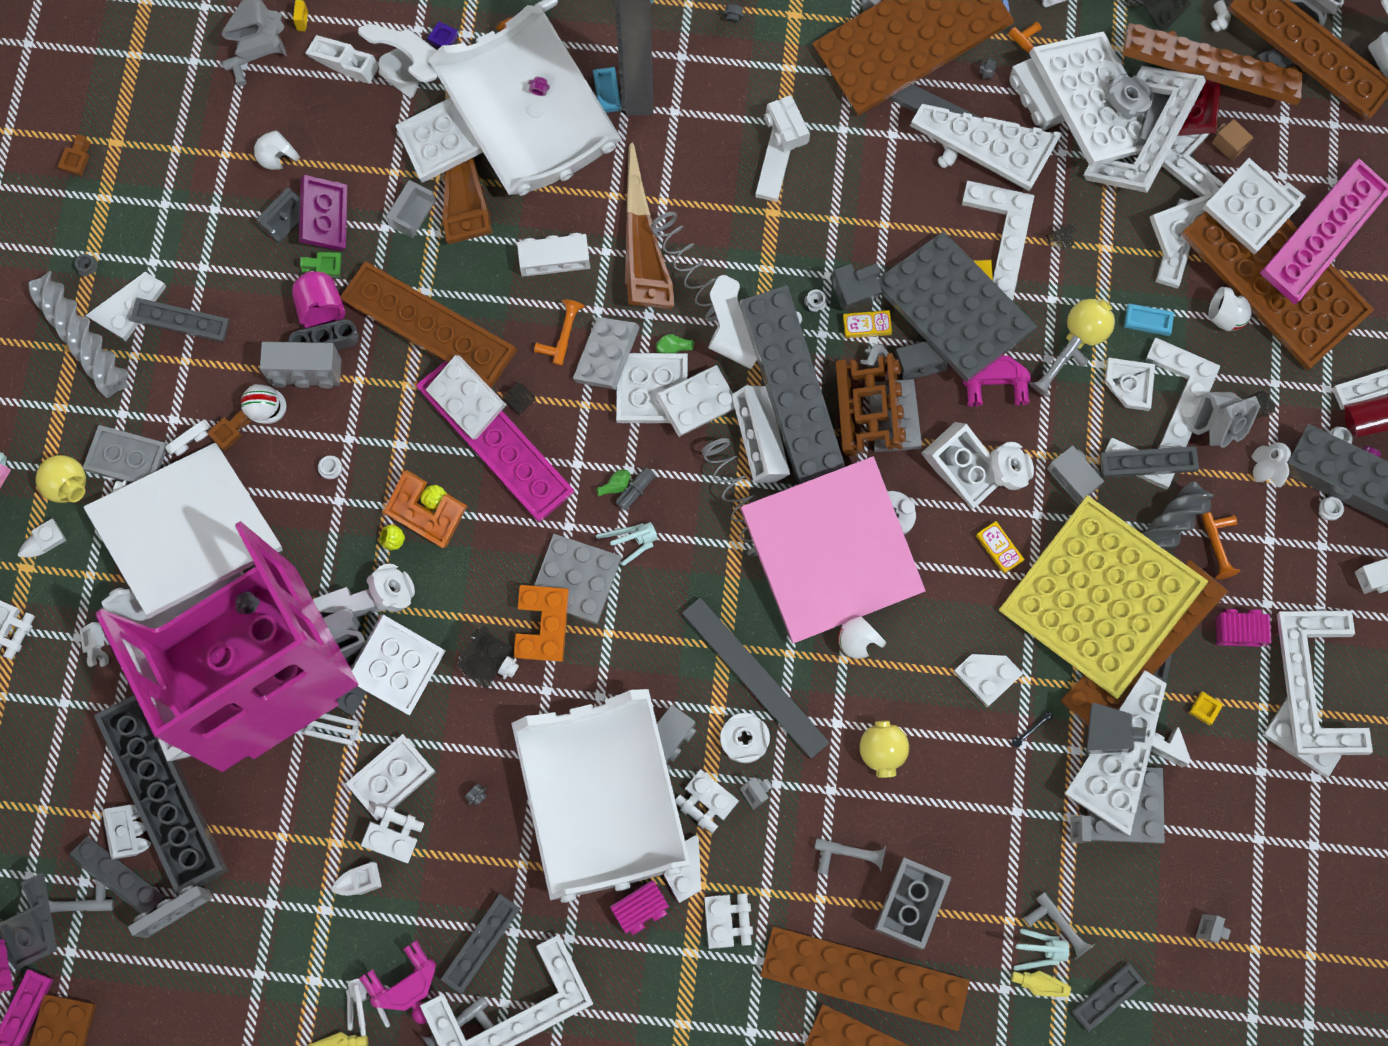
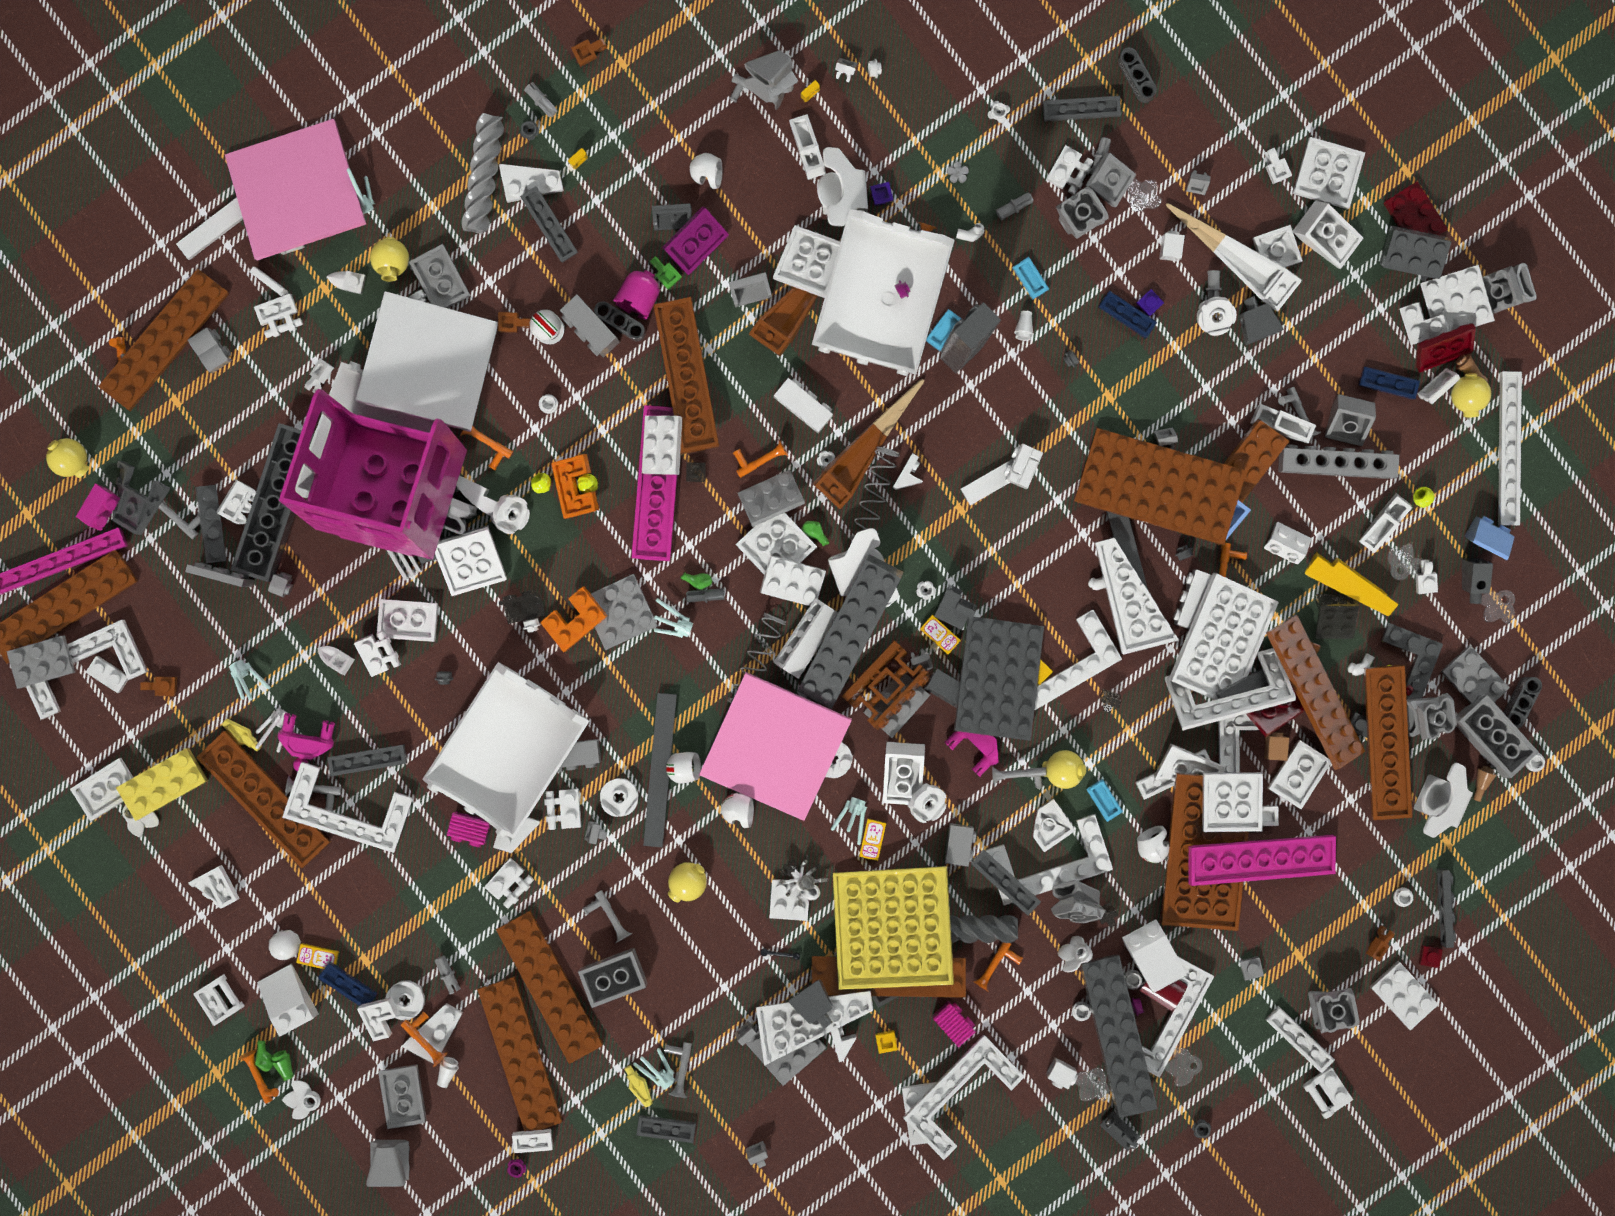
camera: 50 degrees right, 15 degrees up
(71, 231) = (540, 99): none -> light grey axle
(152, 246) = (577, 159): none -> yellow tile
(195, 433) = (477, 303): white plate -> none
(238, 864) = (281, 584): none -> light grey plate
(246, 603) = (417, 447): dark grey plate -> none
(277, 985) = (239, 671): none -> light aqua plant
(324, 546) = (501, 450): none -> orange piece
(614, 277) = (822, 456): none -> white plate
(670, 26) = (1024, 327): none -> white cone
(701, 226) = (905, 478): none -> white slope
(772, 651) = (680, 767): none -> white helmet
(958, 533) = (856, 806): none -> light aqua plant
(986, 642) = (804, 883): none -> animal
(1119, 98) = (1233, 660): light grey plate -> none
(1274, 142) = (1299, 774): none -> white plate
(1335, 395) = (1154, 956): none -> white slope

